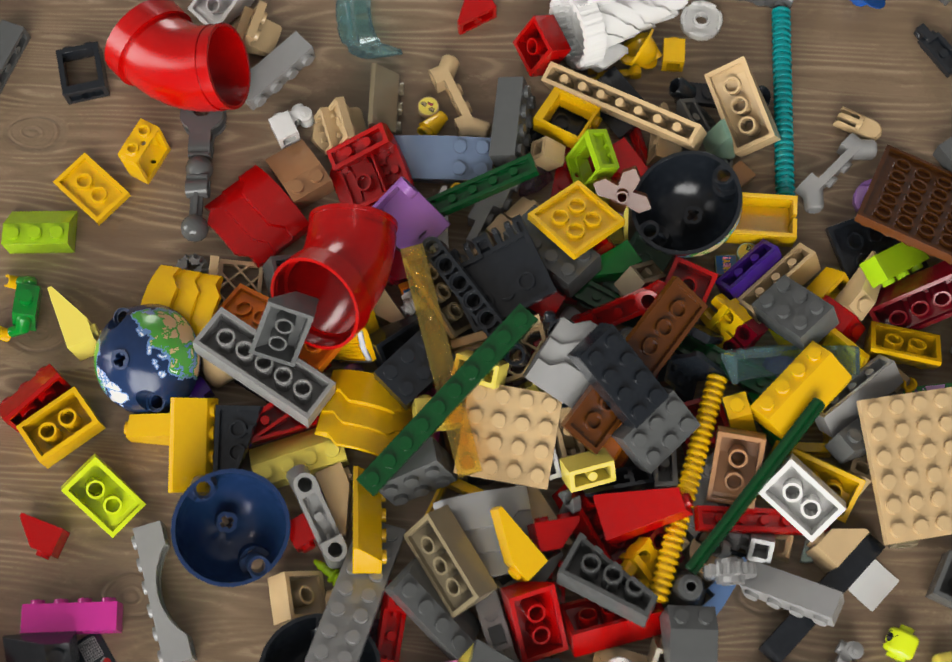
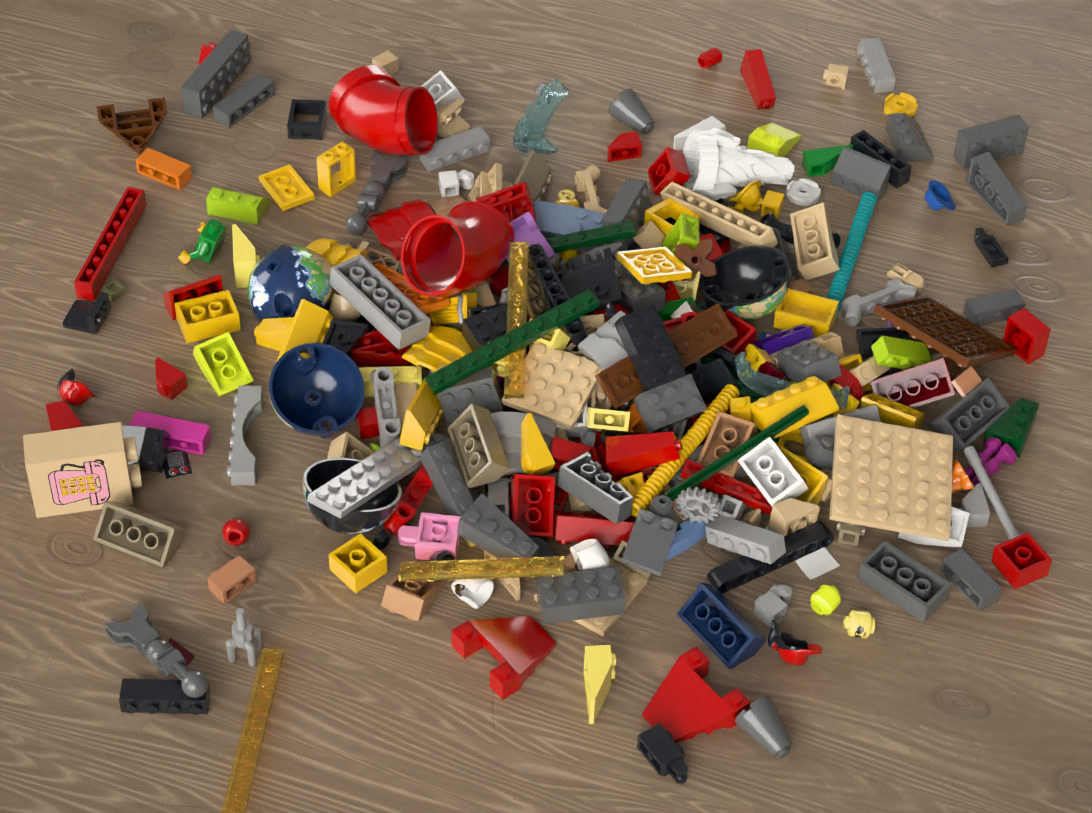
camera: 10 degrees right, 25 degrees down
(284, 327) = (404, 264): dark grey slope -> none
(719, 141) = (787, 247): sand green slope -> none

